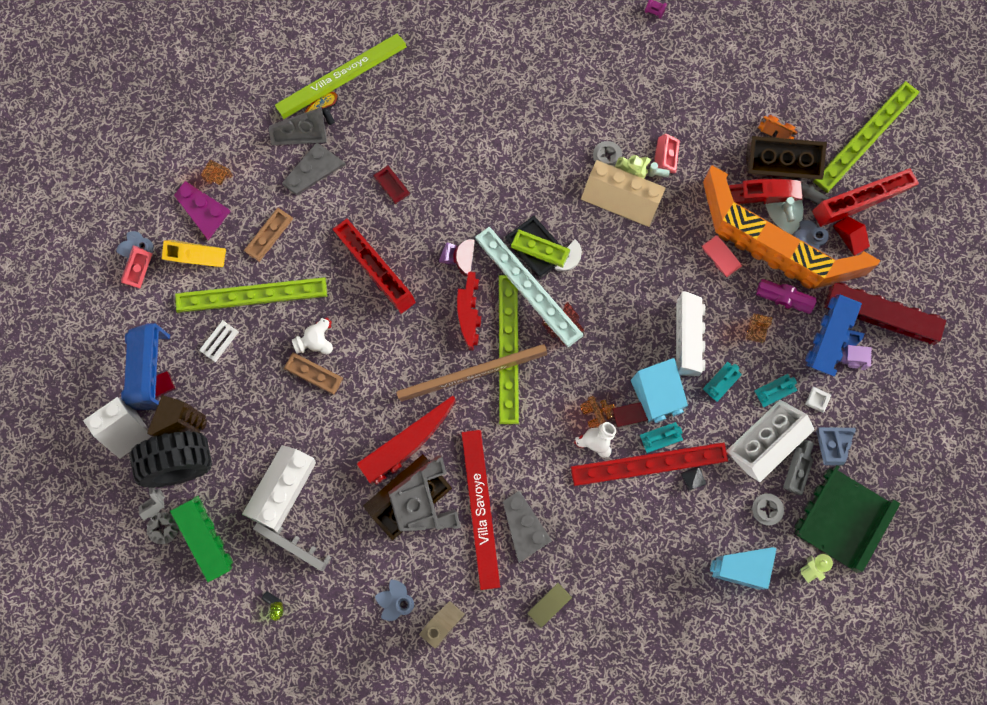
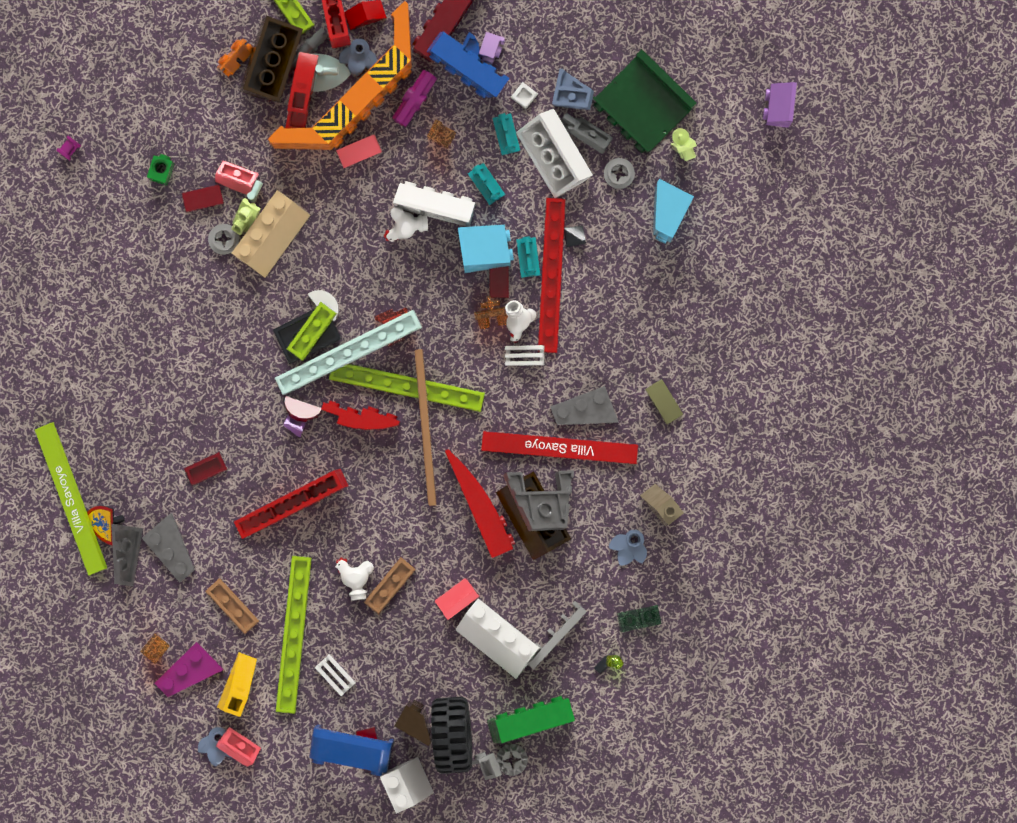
camera: 80 degrees left, 10 degrees up
(311, 440) = (456, 598): none -> coral panel
(324, 627) = (639, 618): none -> clear green slope
(560, 439) = (524, 355): none -> white tile
(640, 129) = (202, 198): none -> dark red tile
(657, 80) = (164, 177): none -> green brick
(663, 312) = (405, 224): none -> white animal
(886, 661) = (780, 104): none -> medium lavender slope

